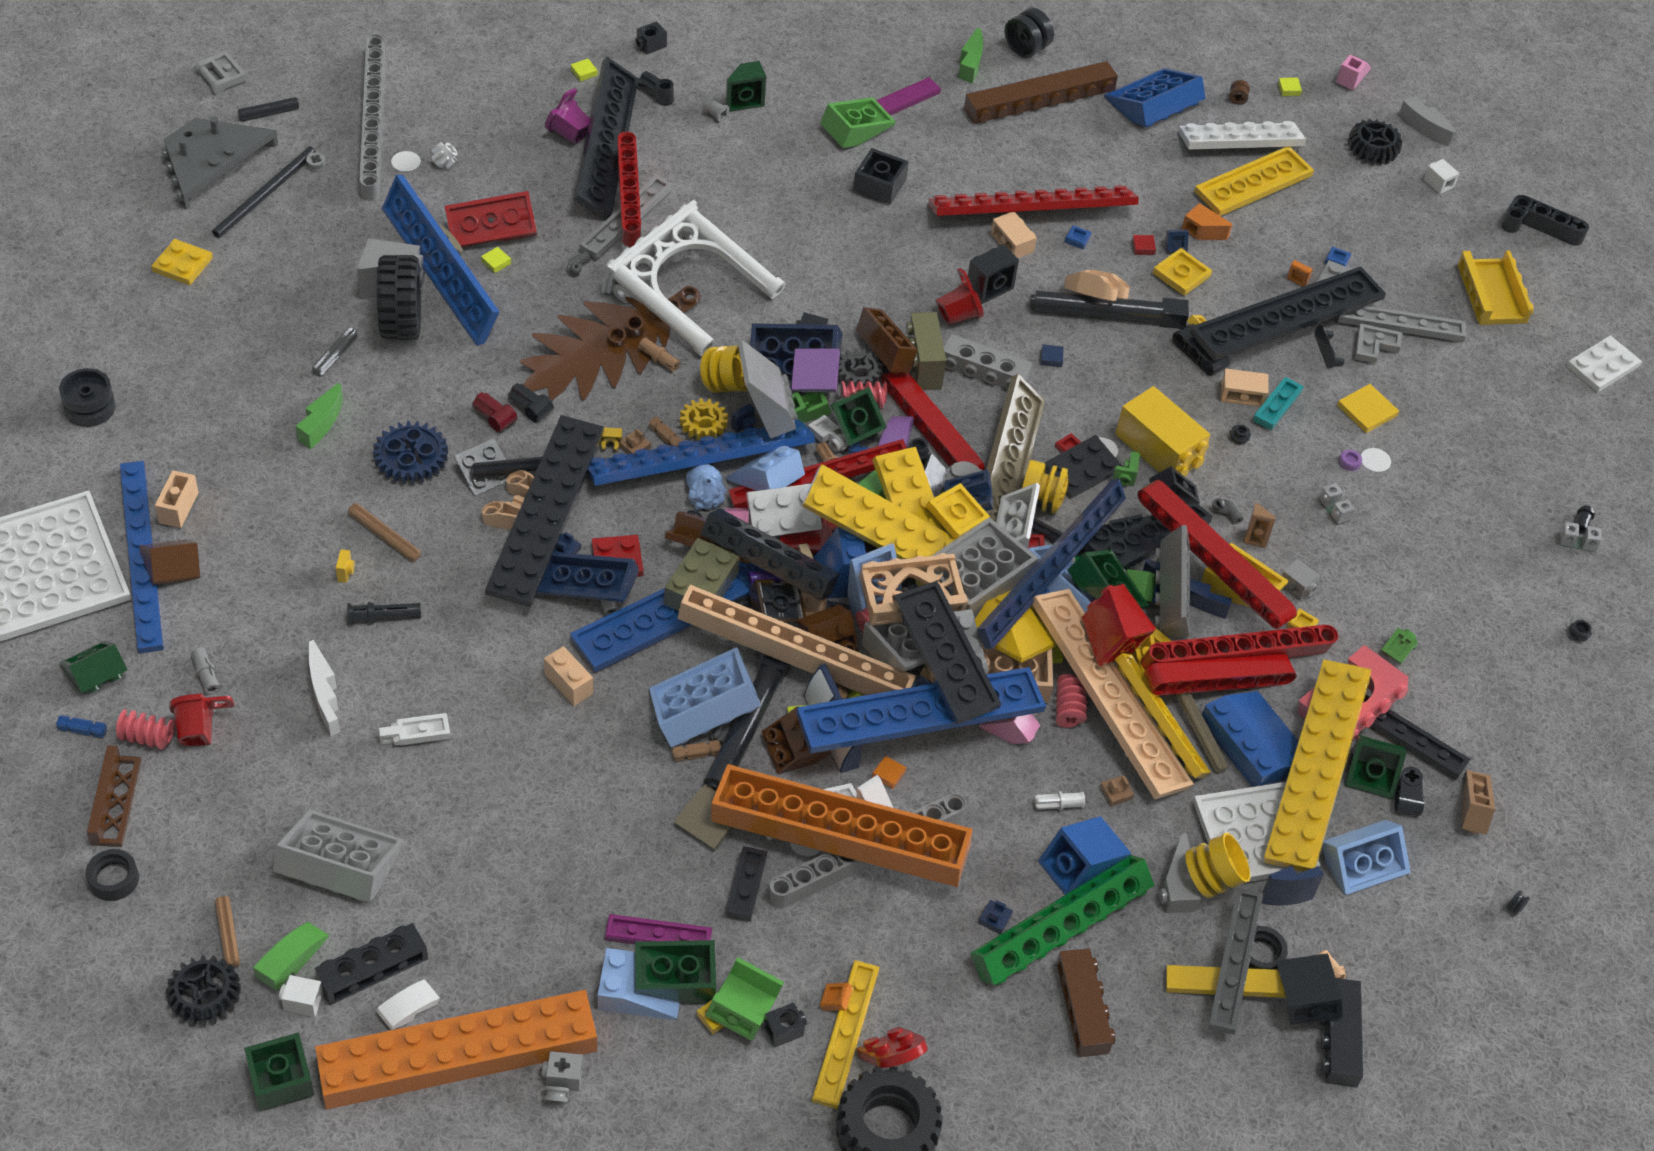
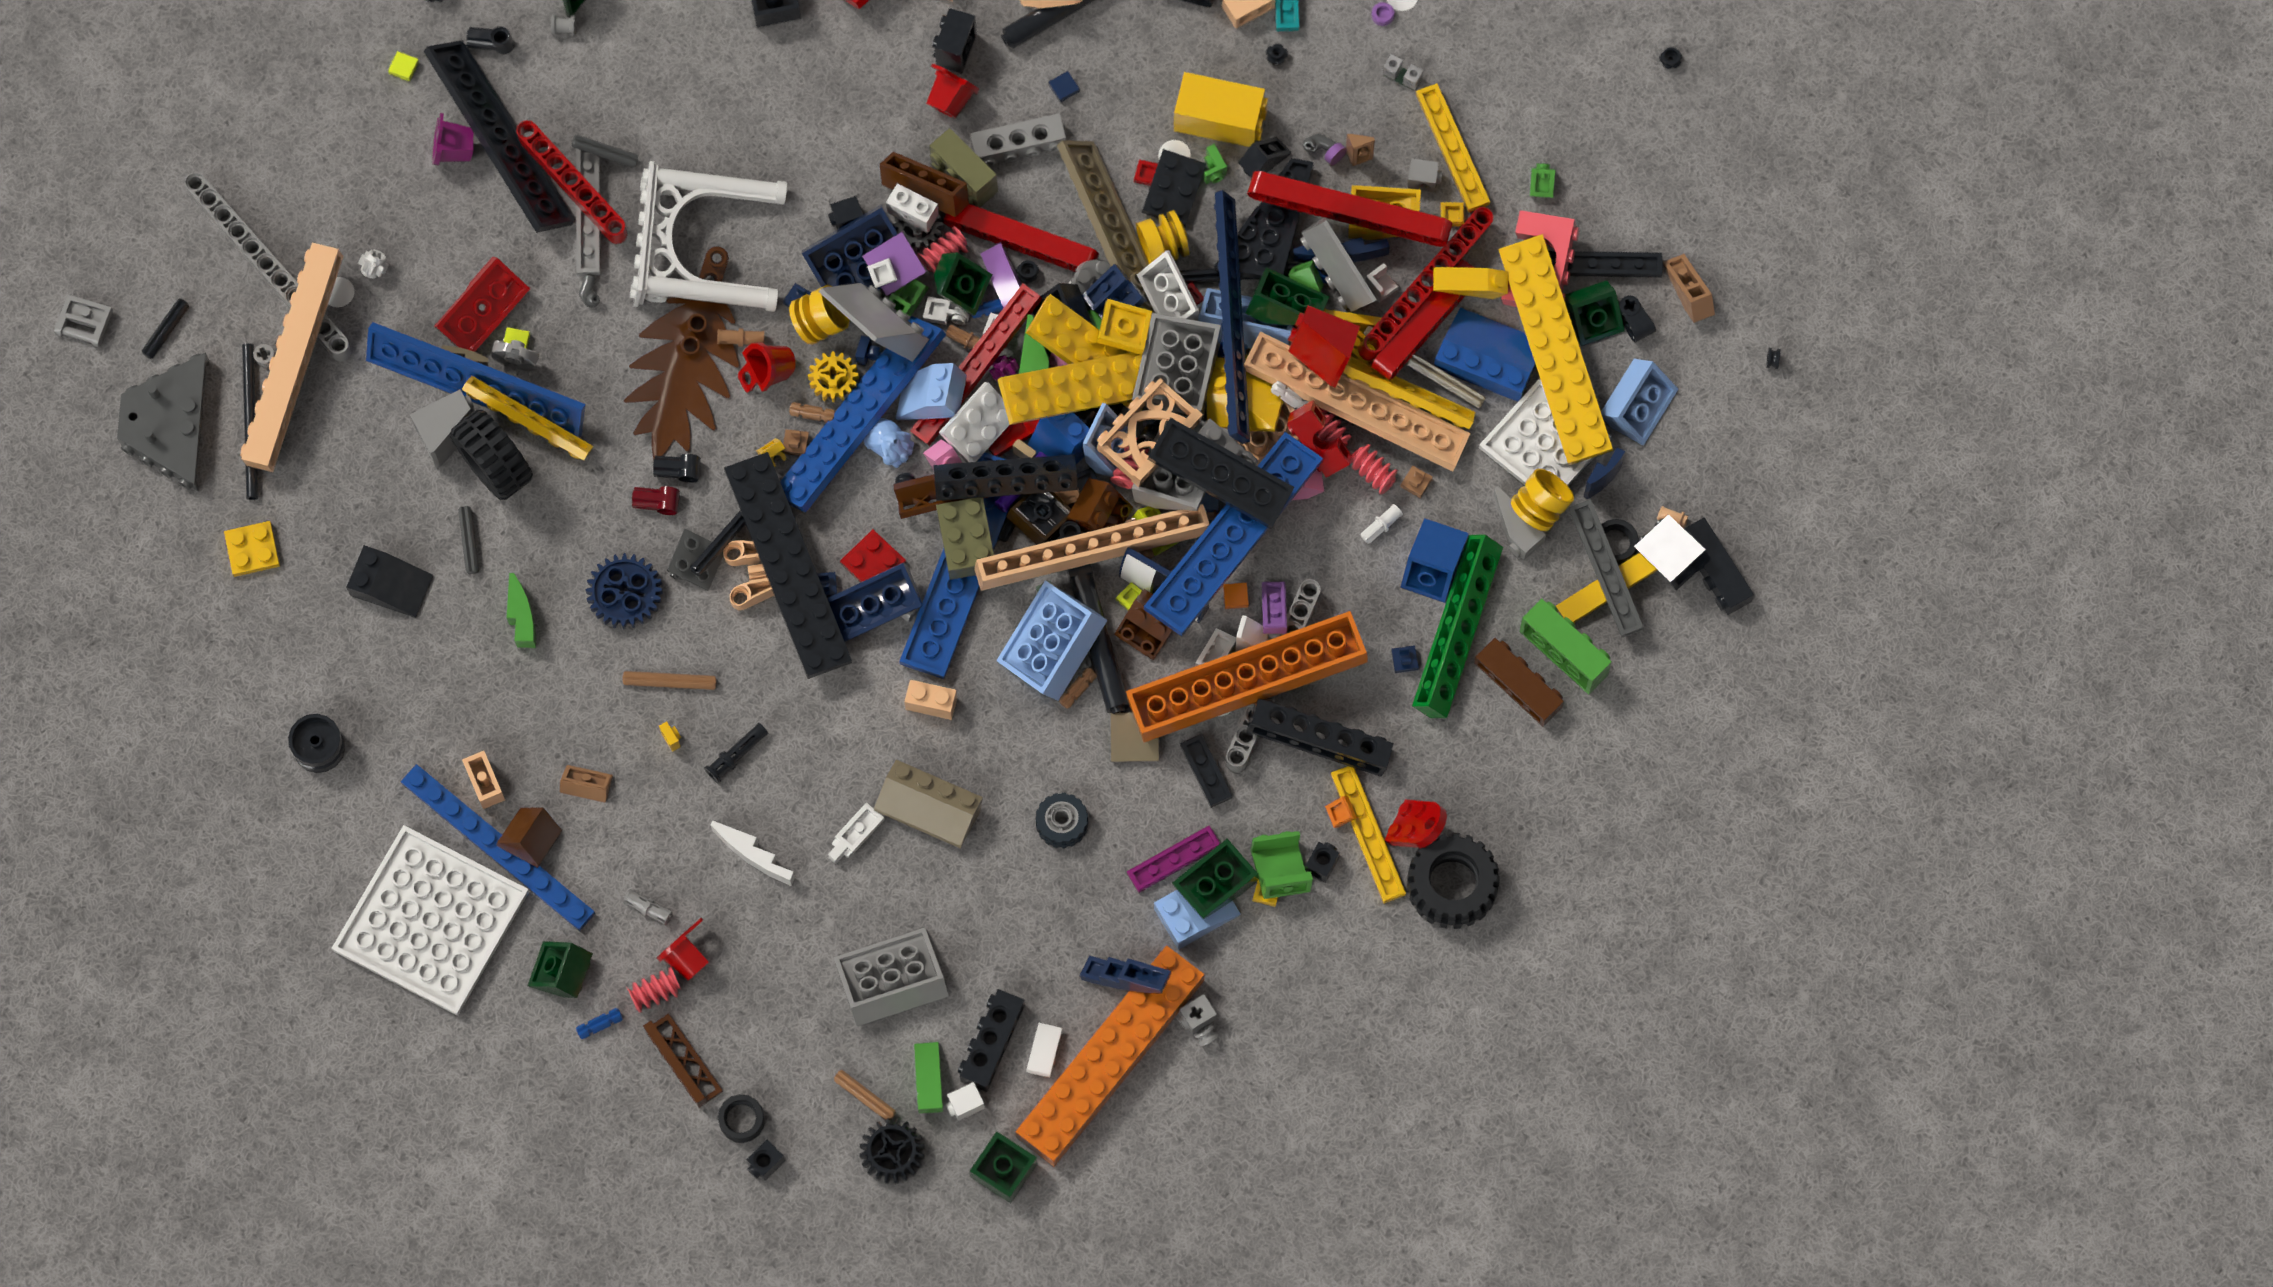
camera: 30 degrees left, 20 degrees up
(100, 929) = (768, 1150): none -> black brick
(249, 337) = (388, 582): none -> black slope
(250, 557) = (585, 783): none -> medium nougat slope
(327, 164) = (292, 357): none -> light nougat brick
(452, 300) = (520, 414): none -> yellow plate
(482, 259) = (515, 354): none -> light grey plate
(493, 747) = (928, 803): none -> dark tan slope
(527, 986) = (1125, 975): none -> dark blue slope
(591, 849) = (1061, 834): none -> black wheel
(660, 379) = (766, 365): none -> red container
(669, 184) = (604, 150): none -> dark grey axle
(800, 368) = (882, 273): none -> white tile
(862, 345) = (912, 208): none -> white brick
(867, 933) = (1308, 741): none -> black brick
(912, 795) = (1274, 608): none -> medium lavender tile
(1050, 673) = (1304, 424): none -> red arch
(1055, 649) = (1287, 395): none -> white axle
(1086, 754) = (1373, 469): none -> coral piece
(1150, 998) = (1565, 645): none -> bright green brick
(1202, 624) = (1381, 283): none -> white panel
(1235, 522) = (1335, 153): none -> medium lavender tile
(1281, 668) = (1471, 281): none -> yellow slope
(1339, 576) = (1452, 147): none -> yellow plate

